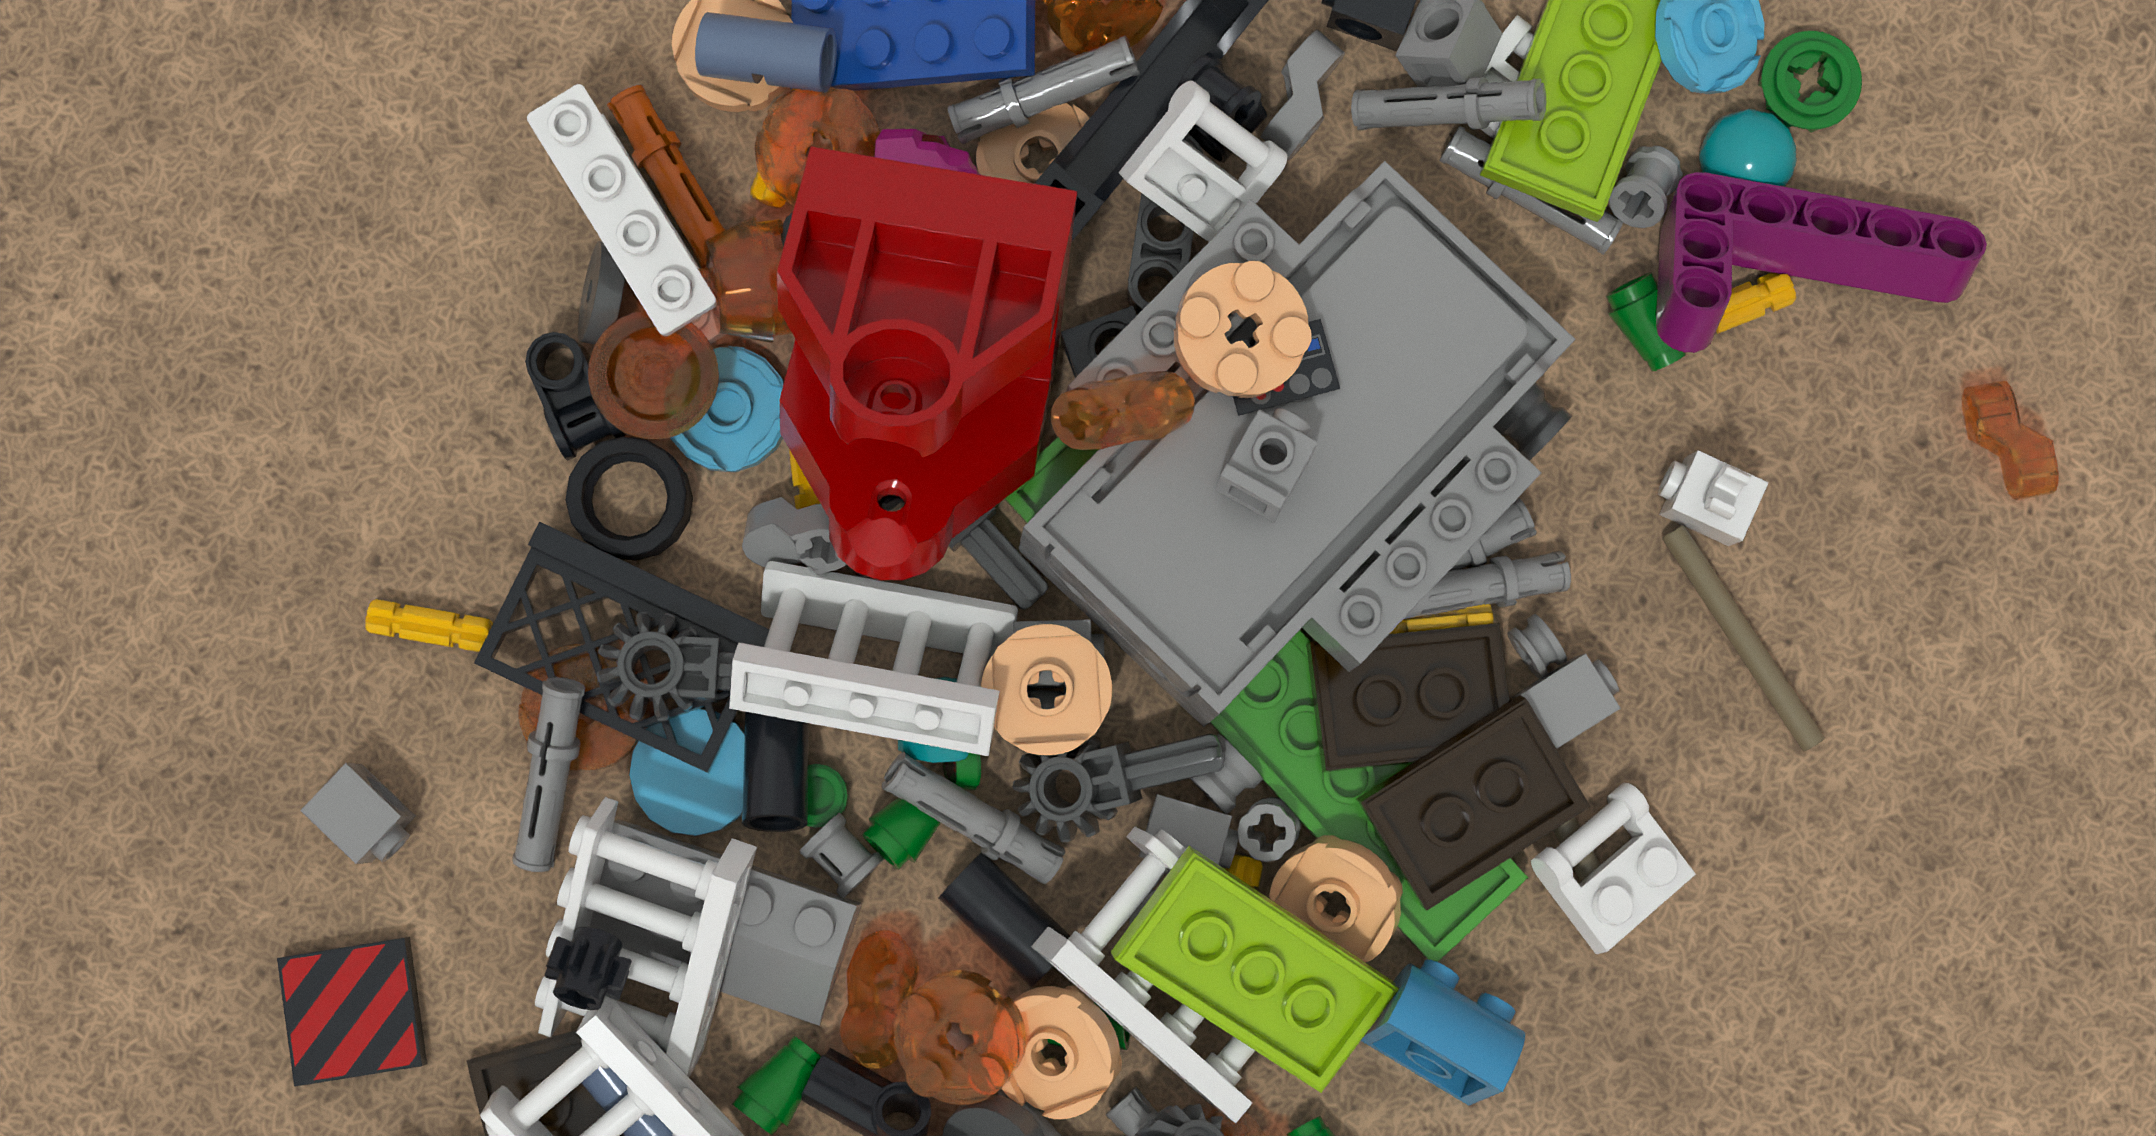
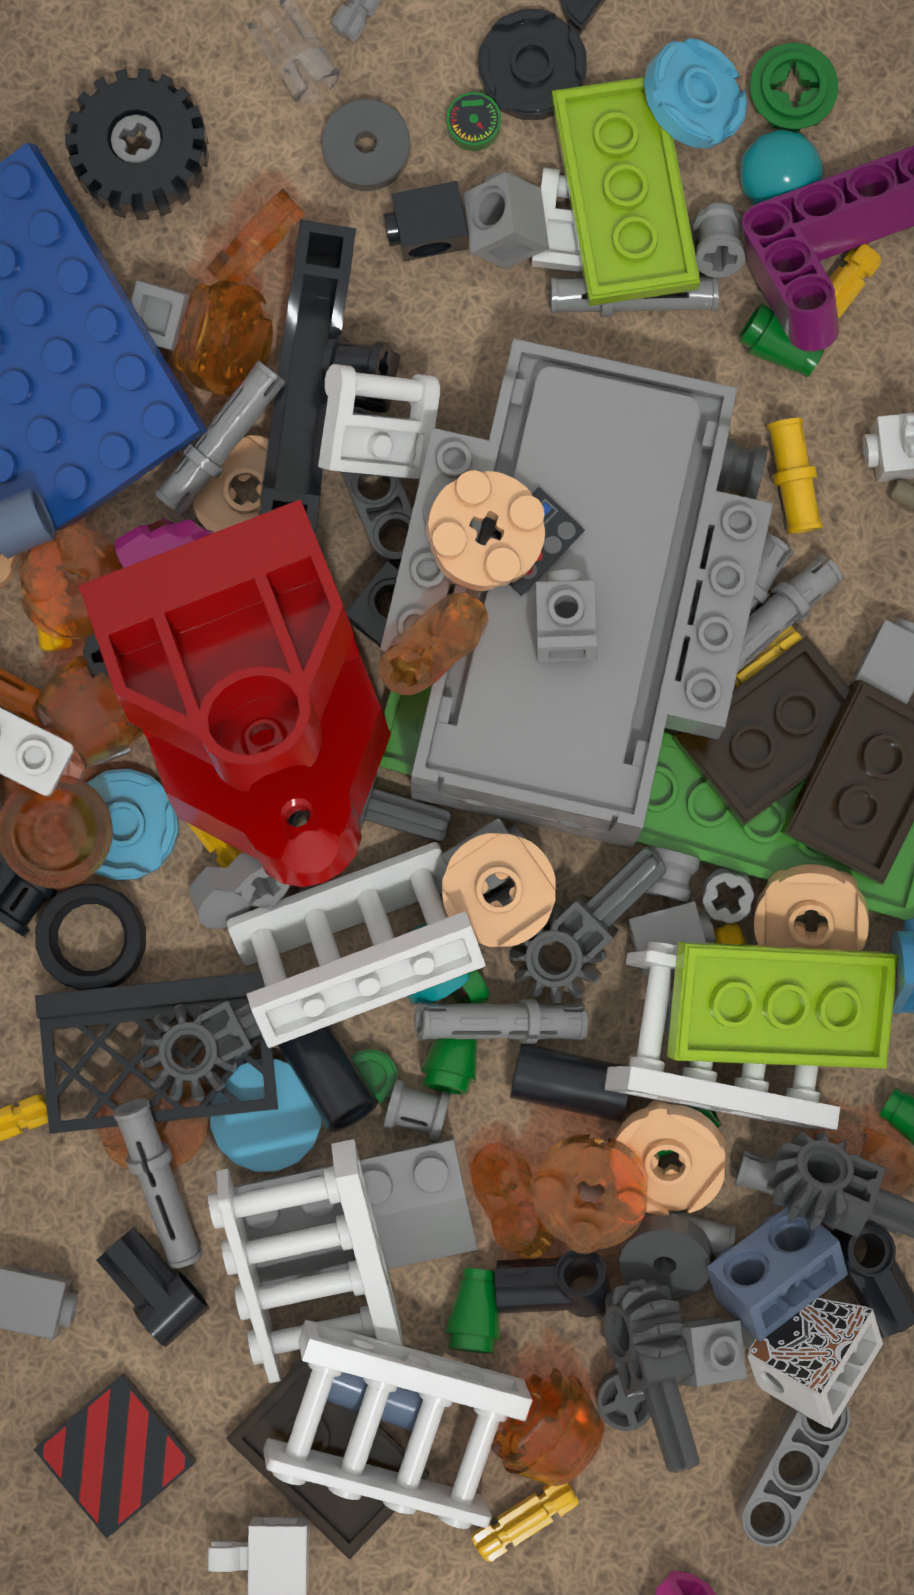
camera: 30 degrees left, 0 degrees up
(487, 887) = (162, 1297): none -> black piece
(587, 968) = (281, 1308): black gear -> none
(1302, 77) = (410, 313): light grey piece -> none
(1469, 103) = (550, 256): light grey pin -> none
(1537, 646) = (845, 636): light grey bush -> none
(1582, 460) = (794, 476): none -> yellow pin

